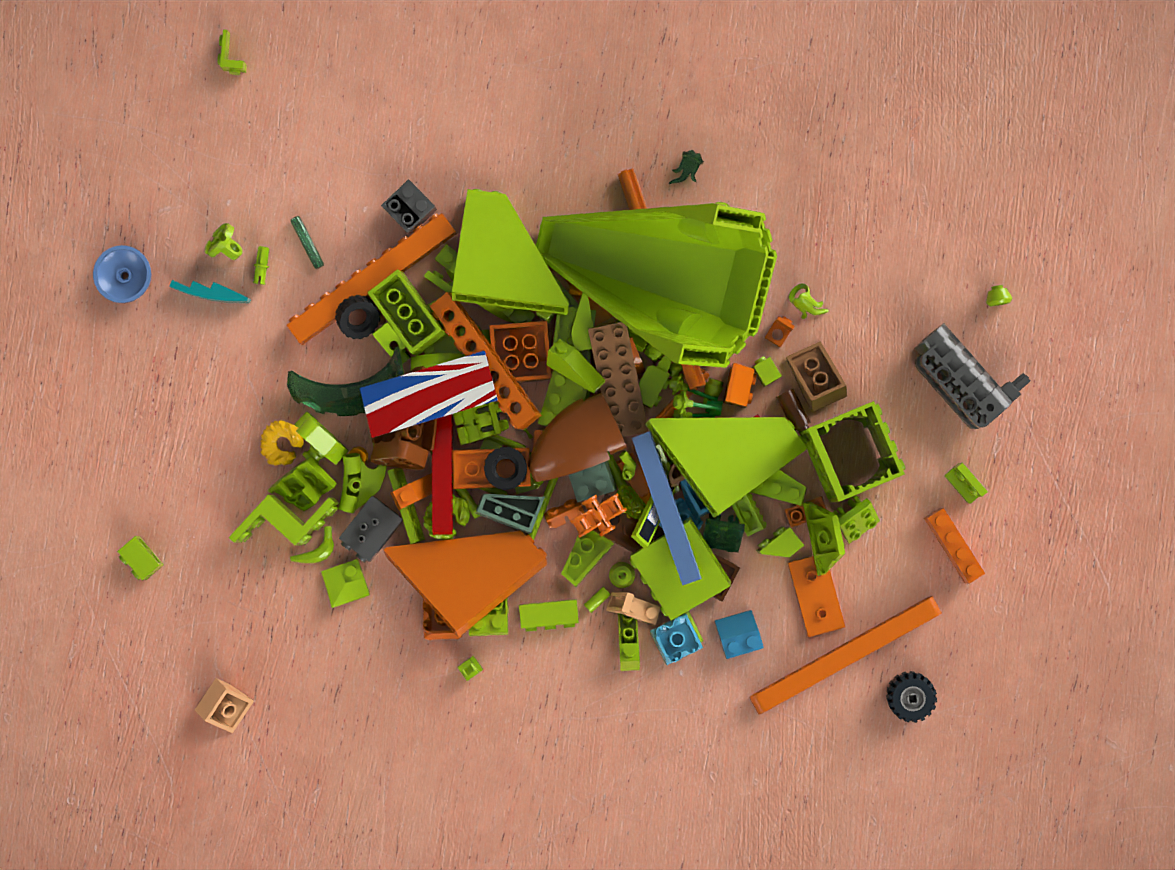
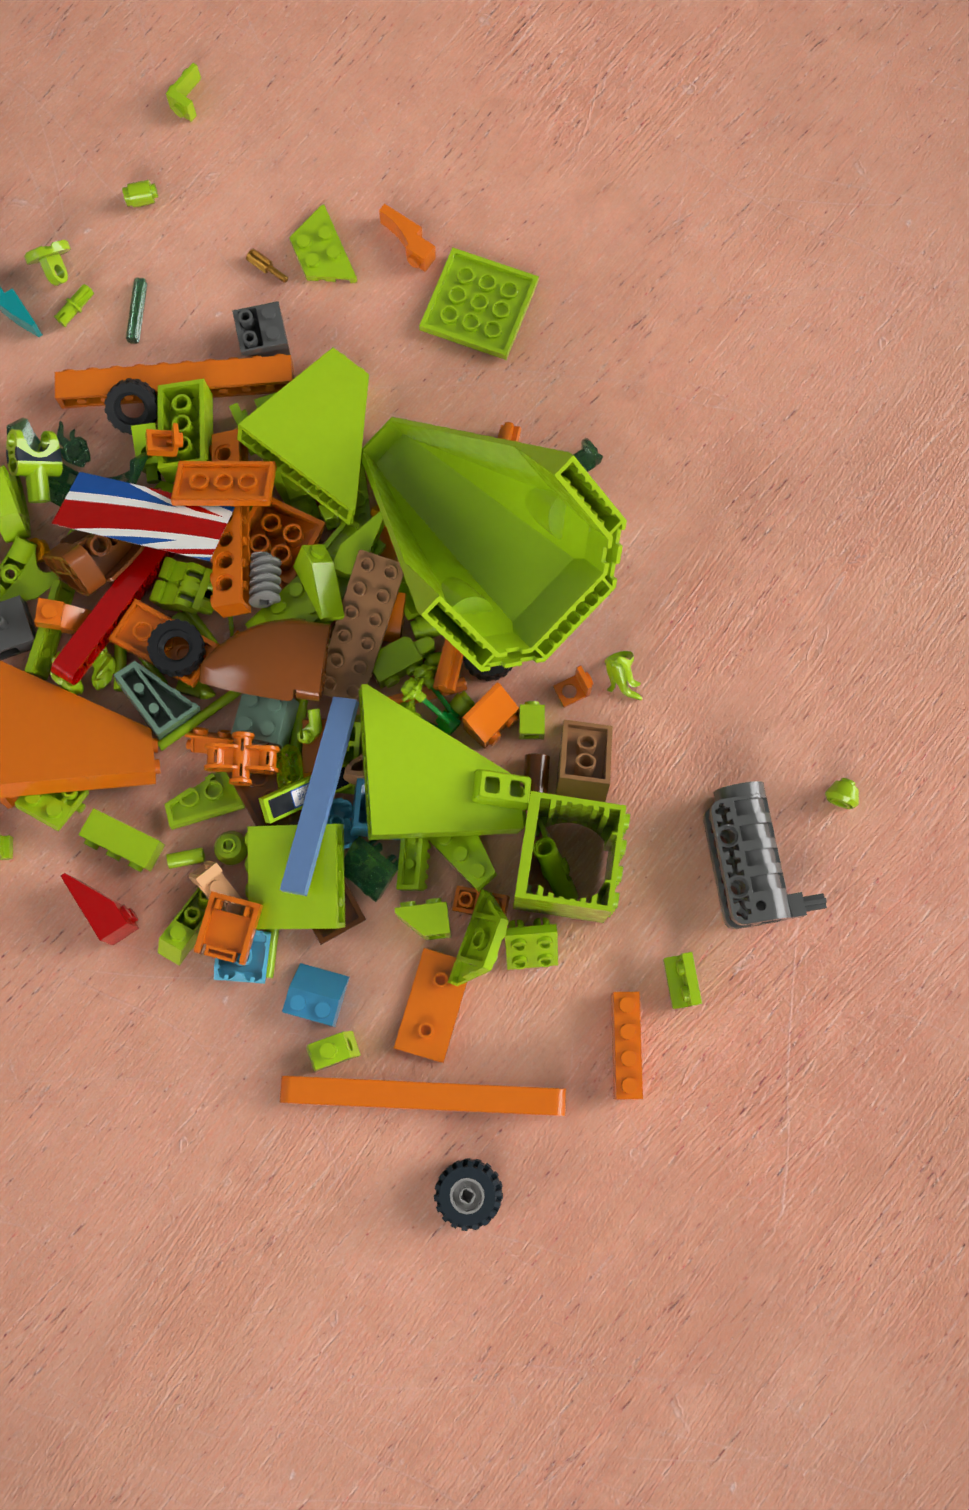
camera: 30 degrees right, 10 degrees down
(251, 153) = (140, 193): none -> lime brick
(320, 399) = (34, 465): none -> lime connector
(333, 371) = (75, 450): none -> clear green piece
(372, 152) = (264, 264): none -> pearl gold axle
(405, 333) = (163, 441): none -> orange bracket
(407, 117) = (321, 250): none -> lime wing
(467, 338) = (224, 483): none -> orange plate
(479, 78) = (418, 250): none -> orange slope
(536, 388) = (264, 580): none -> light grey piece
(545, 91) = (479, 303): none -> lime plate
(574, 667) = (106, 916): none -> red slope
(660, 631) = (227, 932): none -> orange container
(772, 663) = (332, 1050): none -> lime torso
(784, 437) = (503, 797): none -> lime piece
(845, 463) = (553, 866): none -> lime pin

